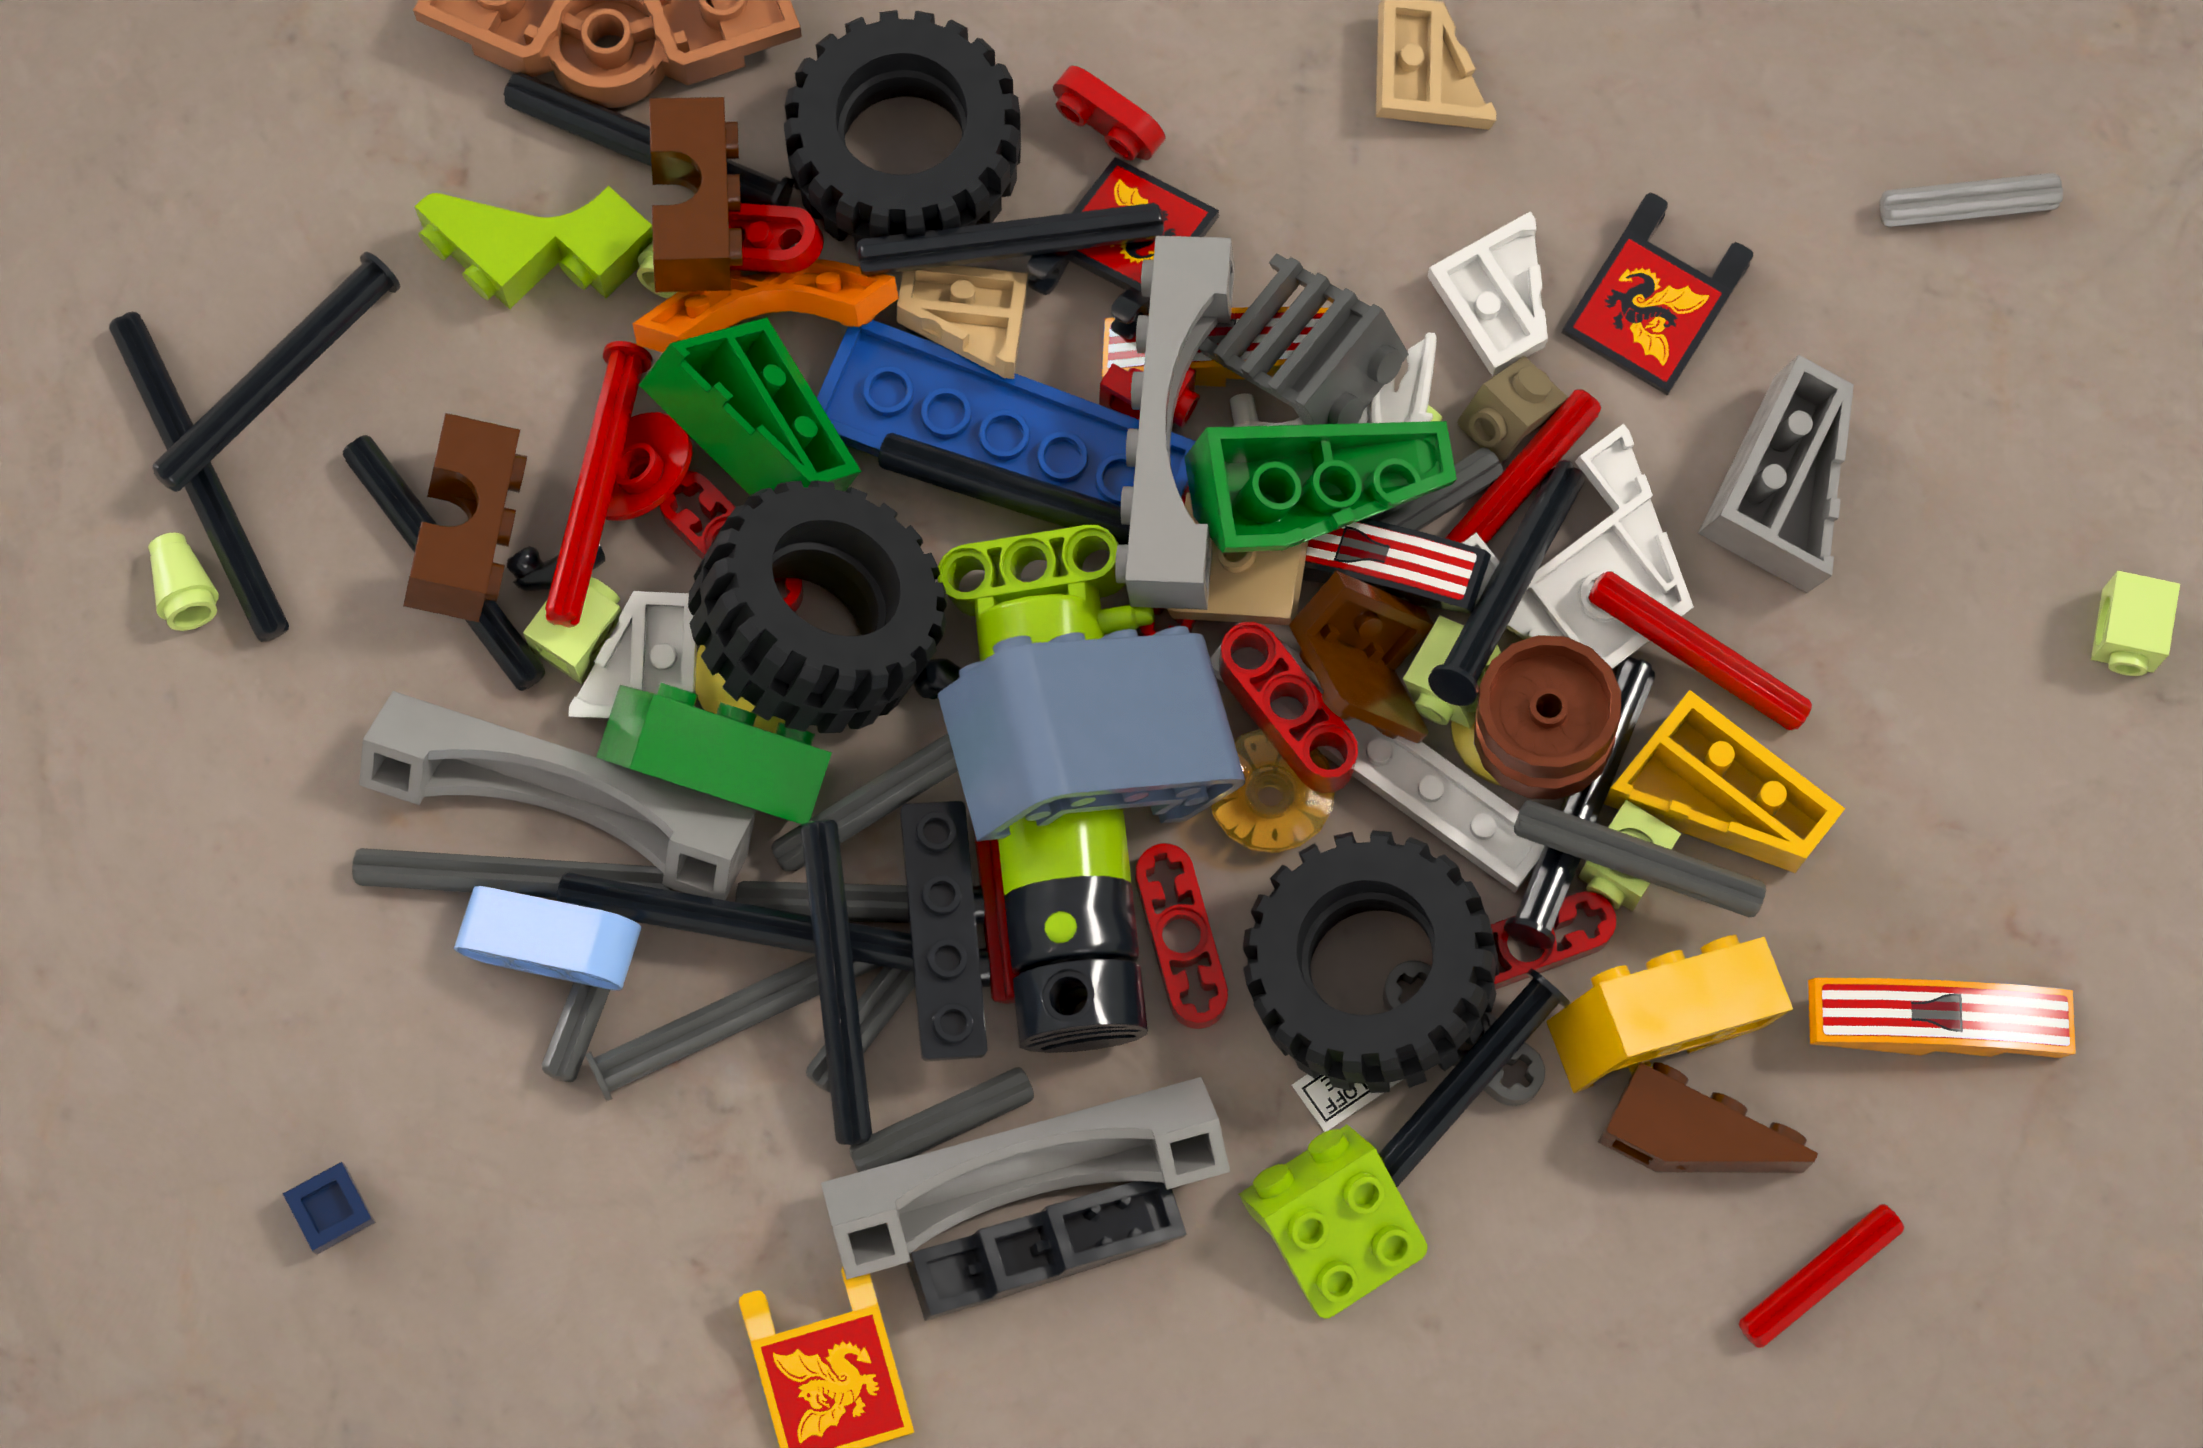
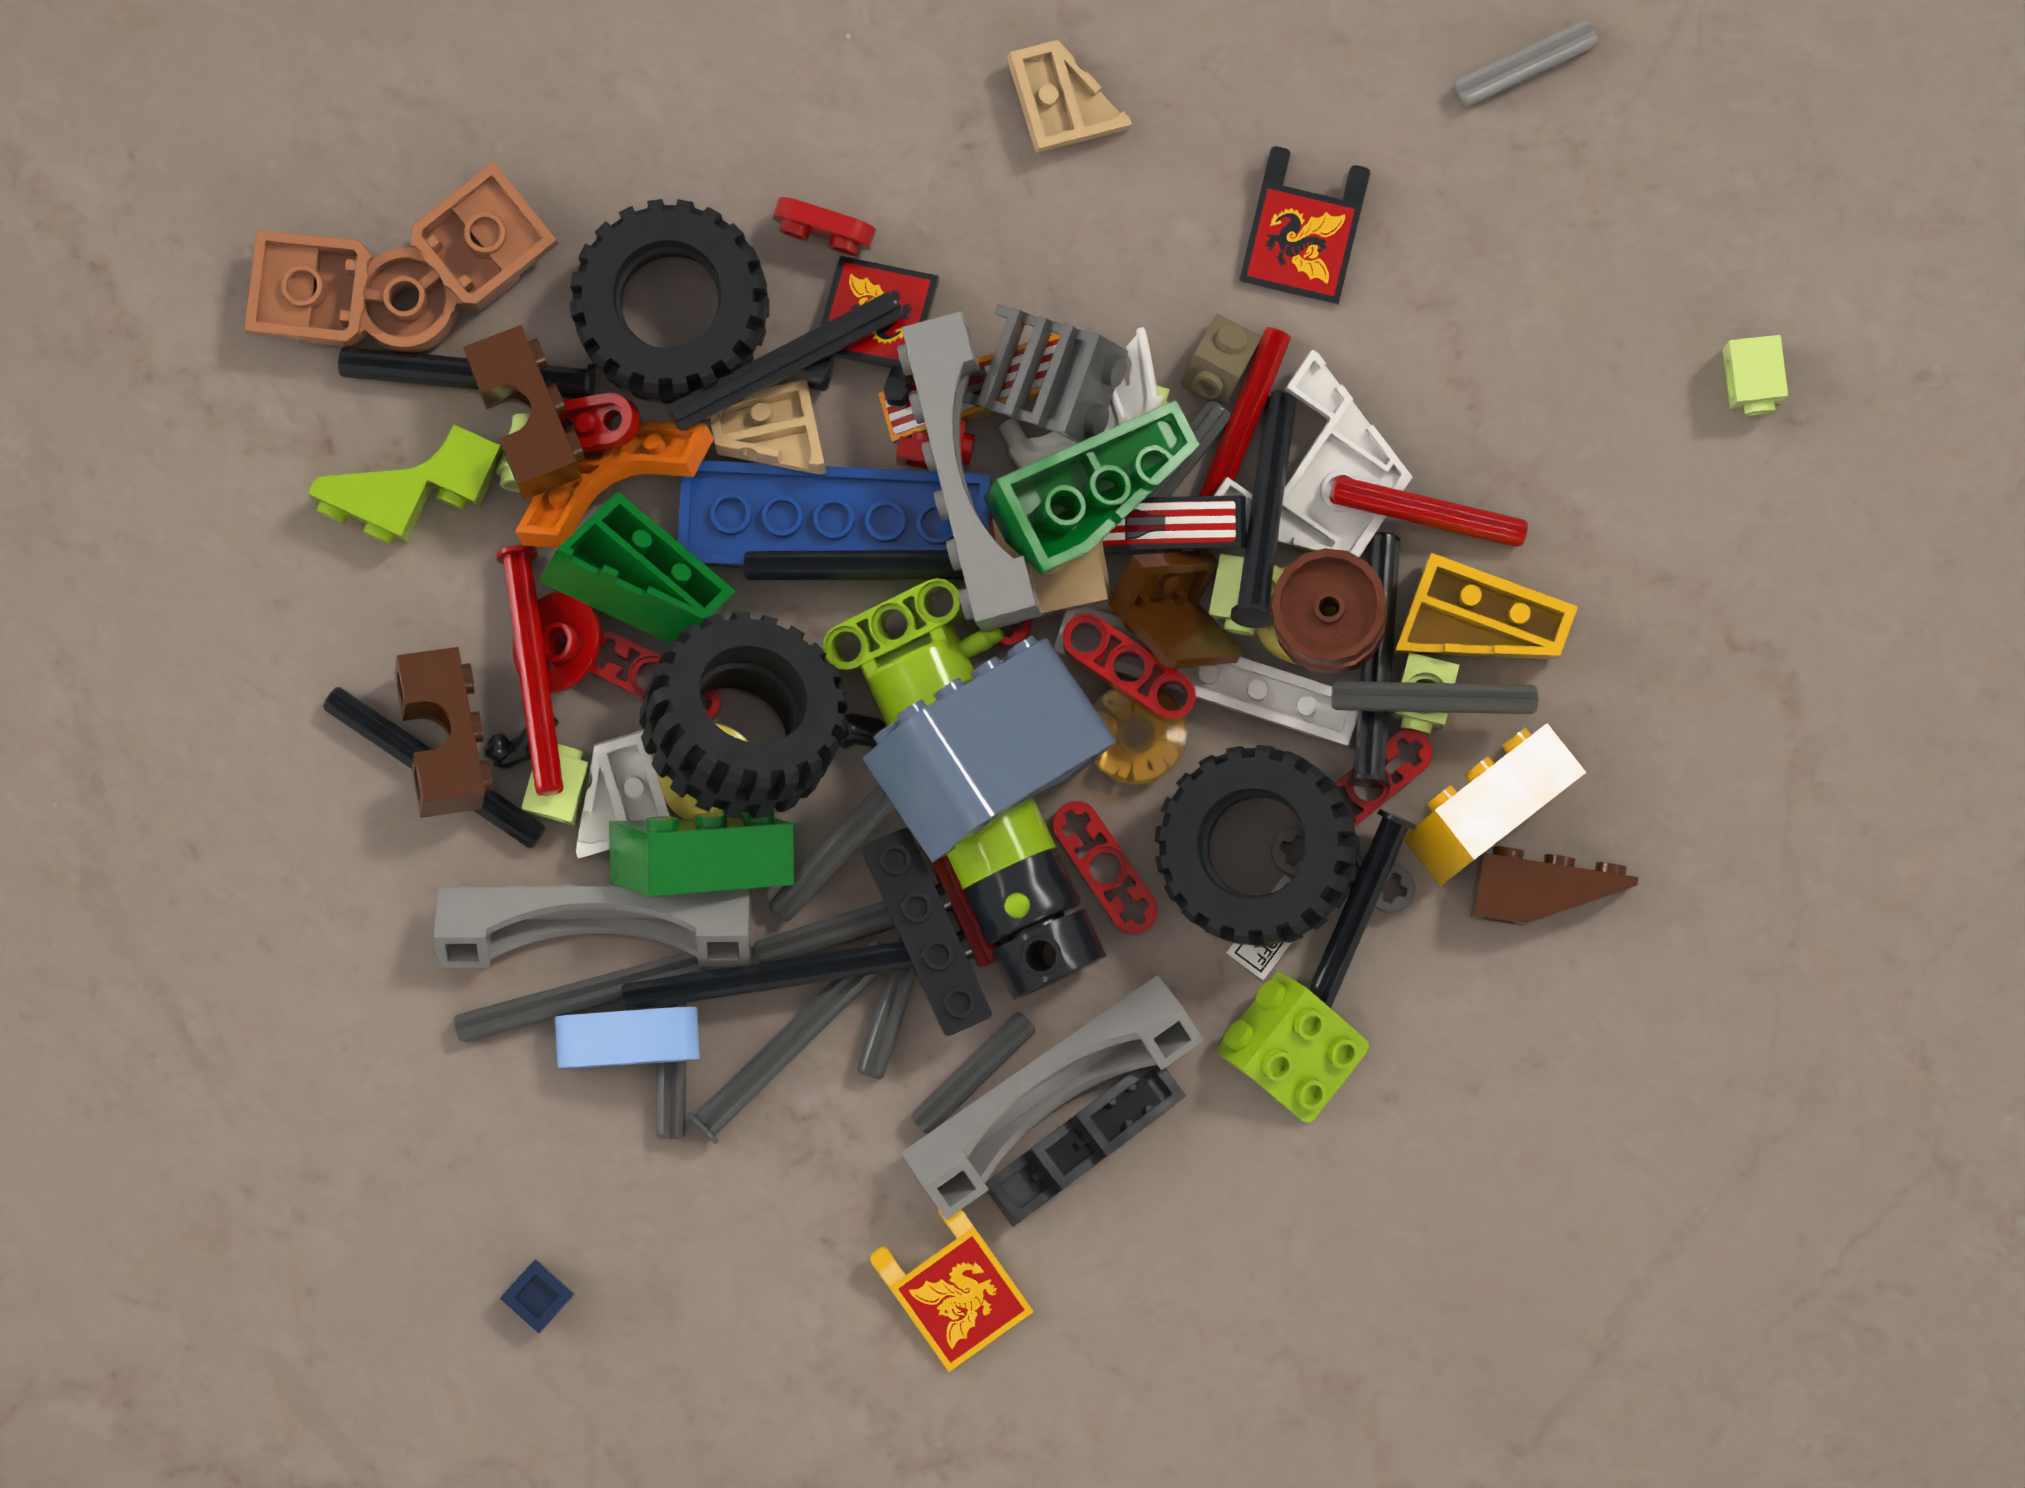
camera: 15 degrees left, 10 degrees up
(181, 584) = (237, 854): yellowish green cone -> none
(205, 488) = (216, 763): black axle -> none
(275, 372) = (247, 662): black axle -> none
(836, 982) = (859, 999): black axle -> none
(1496, 293) = (1179, 270): white wing -> none
(1785, 477) = (1451, 348): light grey wedge -> none
(1821, 1276) = (1669, 964): red axle -> none
(1941, 1017) = (1699, 737): slope -> none

